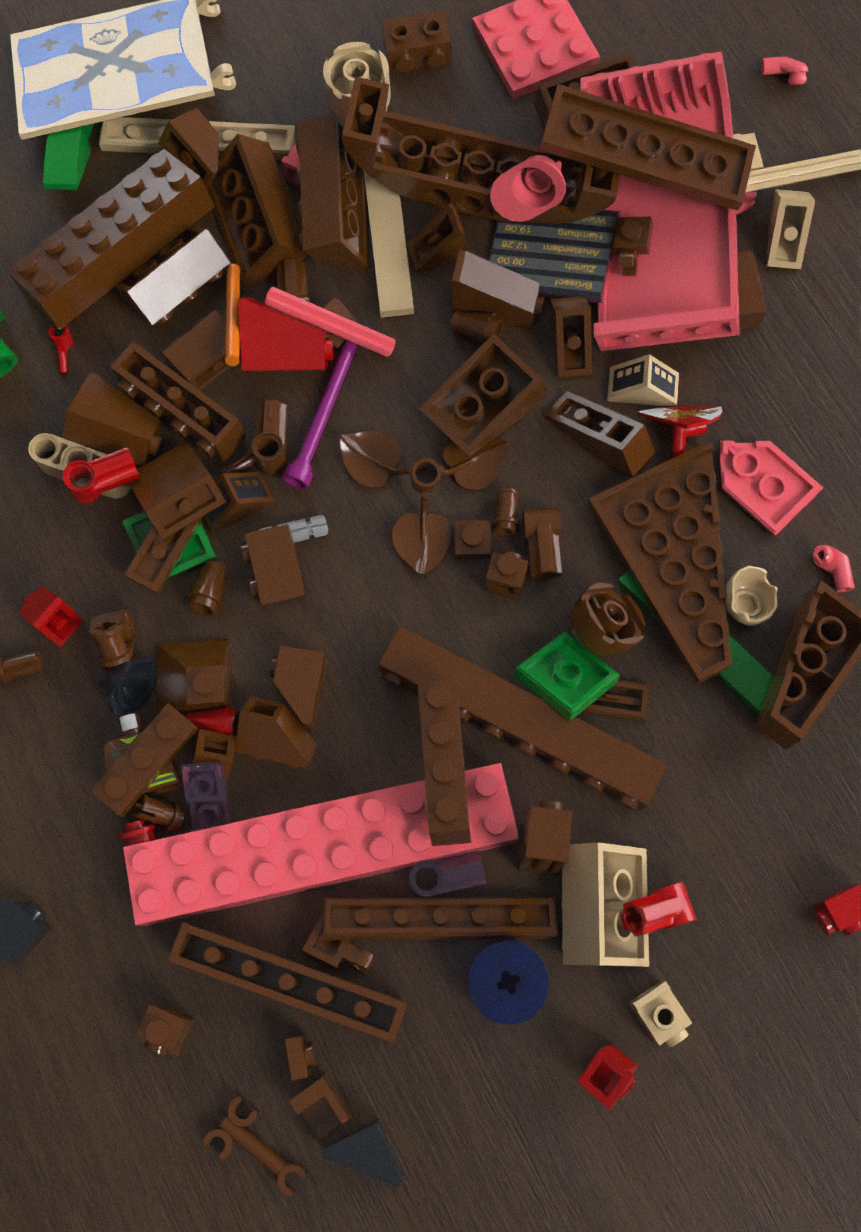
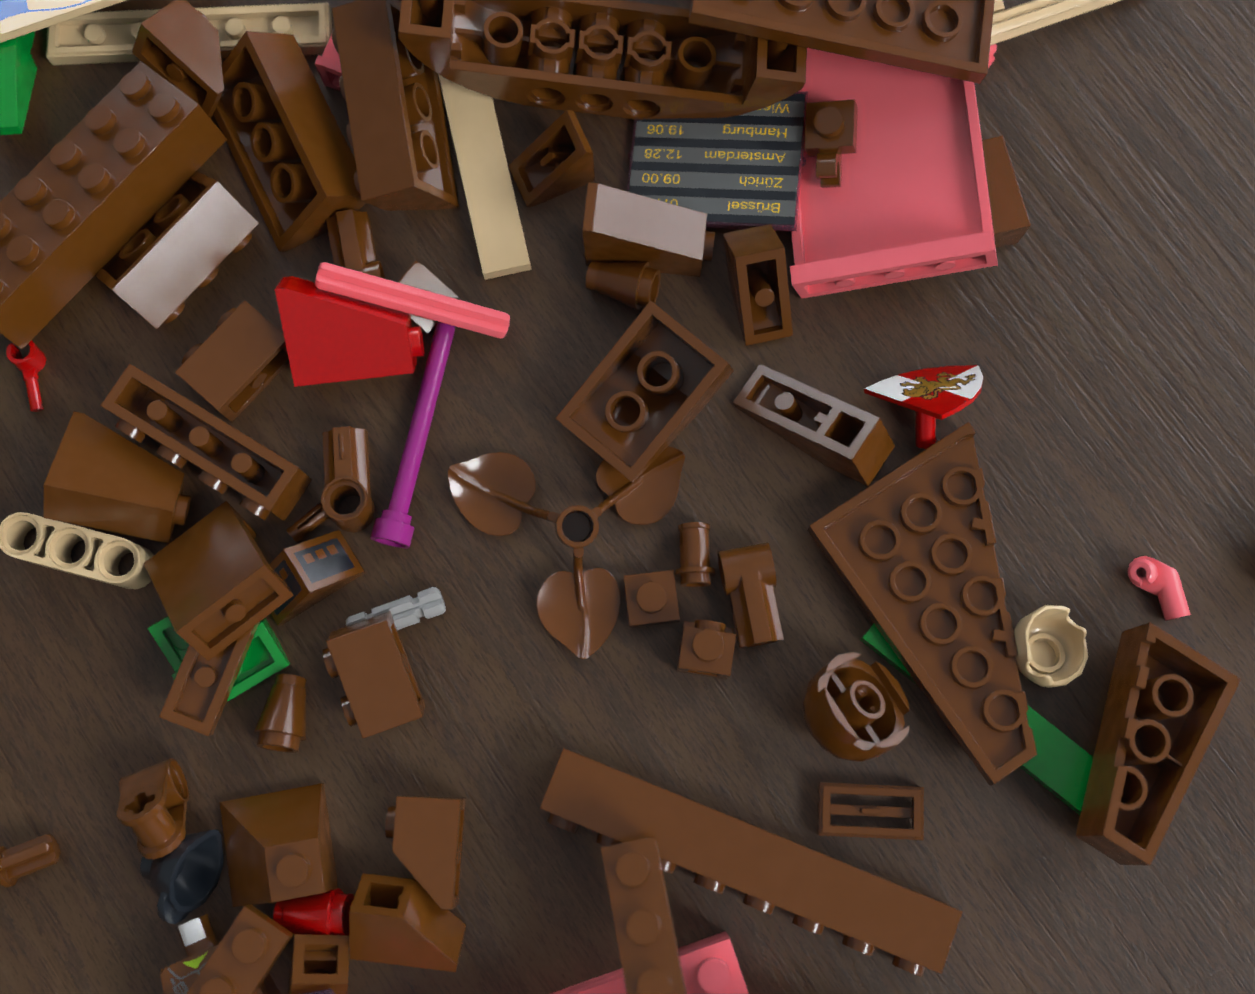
camera: 10 degrees left, 5 degrees up
(50, 615) = (57, 784): red slope -> none
(103, 473) = (110, 573): red piece -> none
(232, 335) = (272, 328): orange bar -> none
(528, 188) = (678, 77): coral piece -> none
(566, 676) = (806, 794): green tile -> none
(643, 382) = (866, 343): tan slope -> none
(765, 482) = (1051, 472): coral tile -> none
(789, 228) = (1047, 92): tan slope -> none

